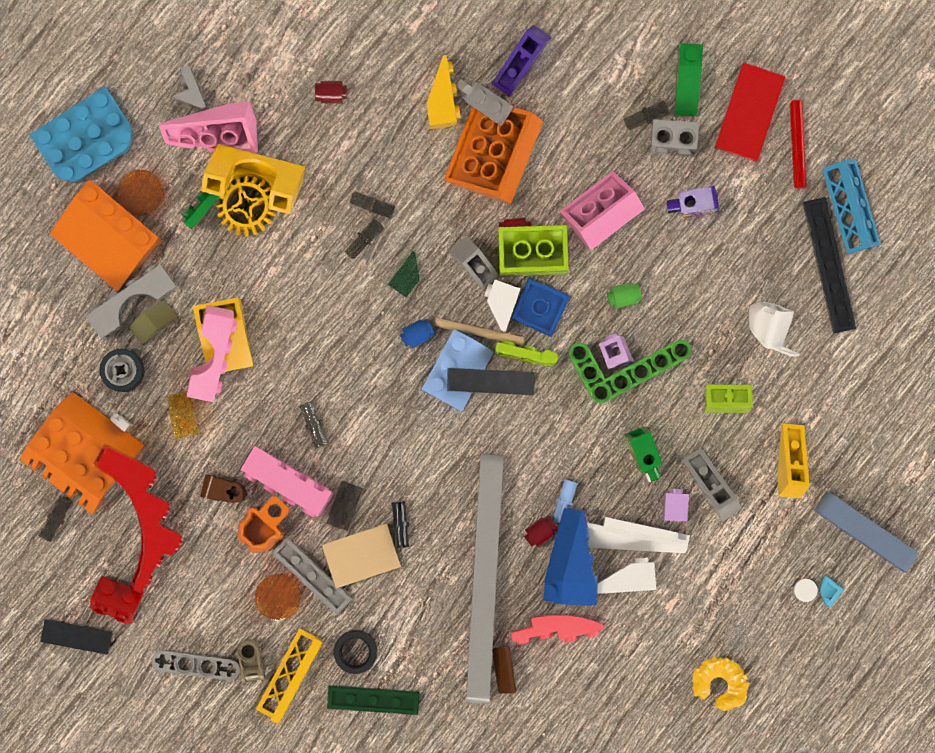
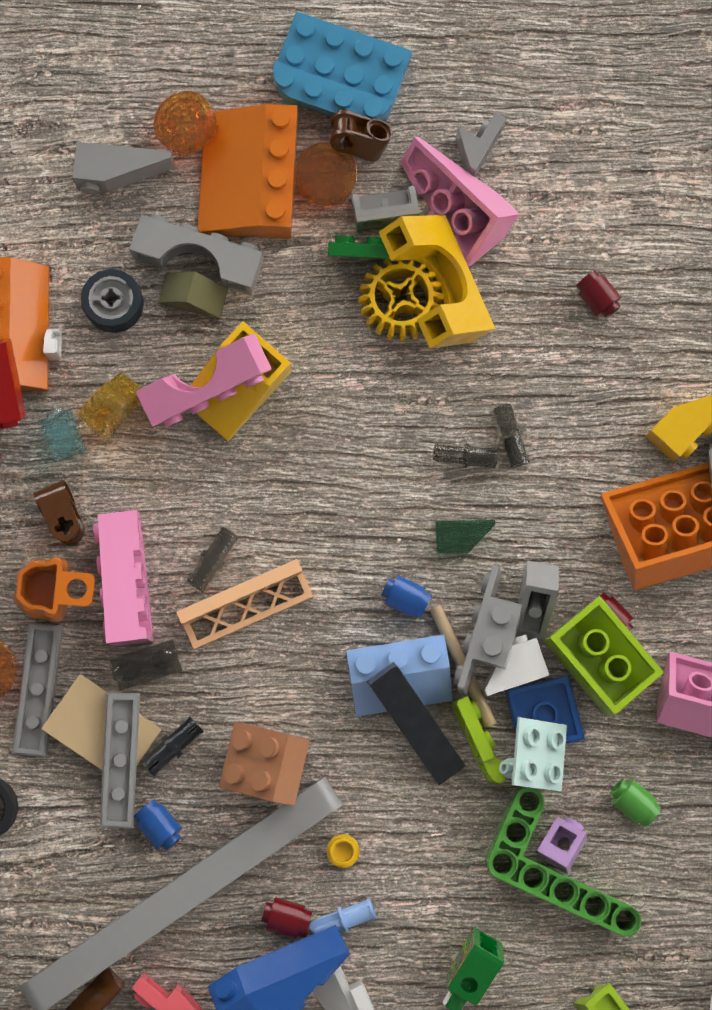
camera: 45 degrees right, 5 degrees down
(42, 311) = (112, 167): none -> light grey slope
(48, 250) = (185, 122): none -> clear orange tile
(134, 155) = (361, 137): none -> reddish brown piece
(178, 455) = (63, 434): none -> clear light blue brick
(187, 174) = (382, 209): none -> light grey hinge
(343, 427) = (241, 592): none -> light nougat fence
(386, 558) = (119, 760): none -> light grey tile
(437, 564) = (158, 825): none -> blue brick
(448, 480) = (264, 763): none -> nougat brick
(473, 301) = (493, 632): none -> light grey bracket
(528, 474) = (343, 850): none -> yellow plate
(557, 328) = (537, 755): none -> light aqua hinge

